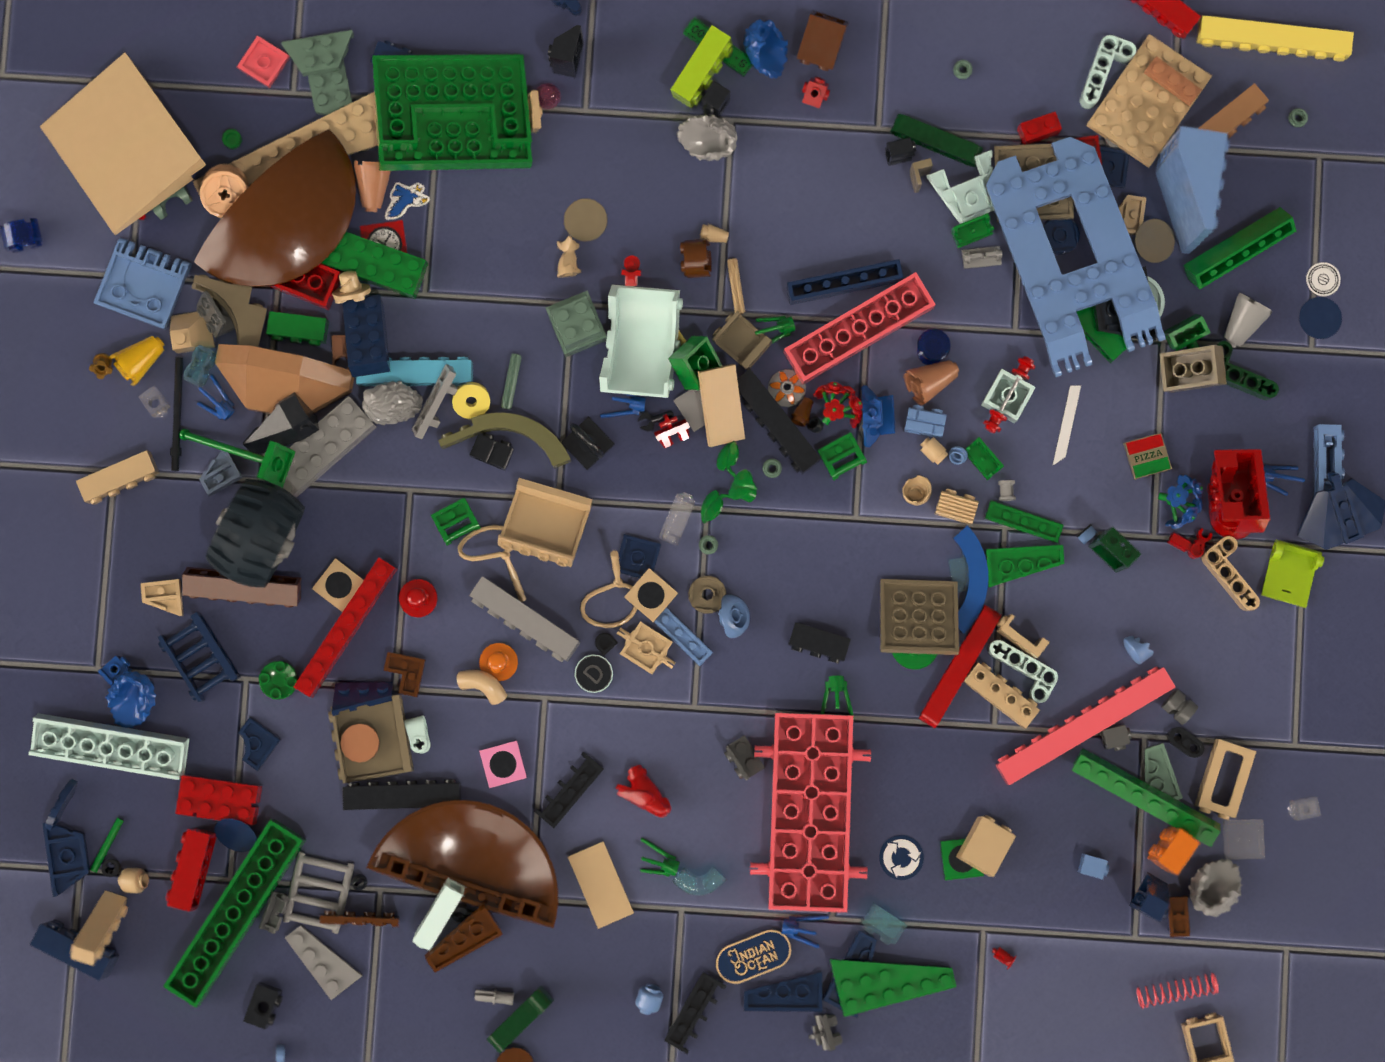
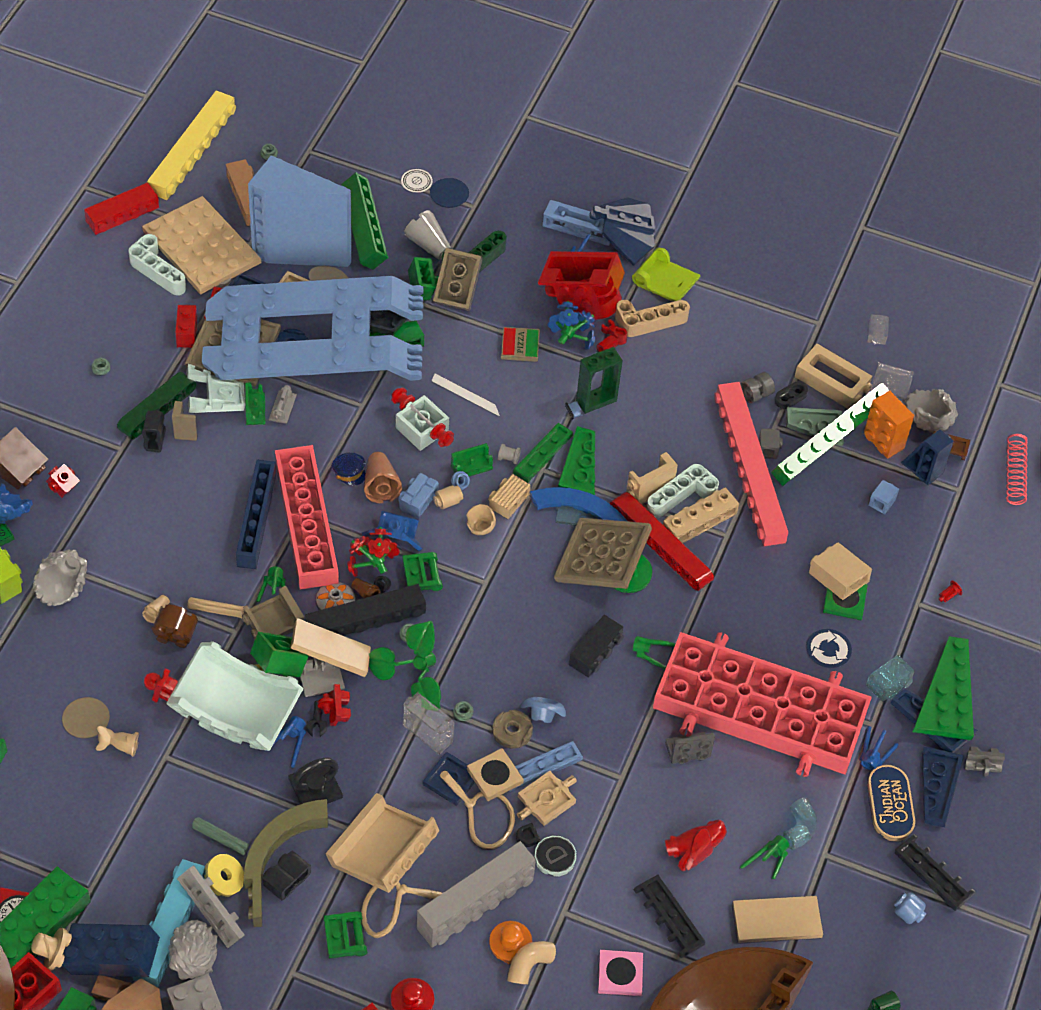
camera: 80 degrees left, 30 degrees down
(576, 323) = (190, 749): sand green piece -> none
(715, 100) = (27, 557): black brick -> none
(1136, 650) = (695, 401): medium blue hair -> none
(1172, 81) = (193, 219): nougat plate -> none

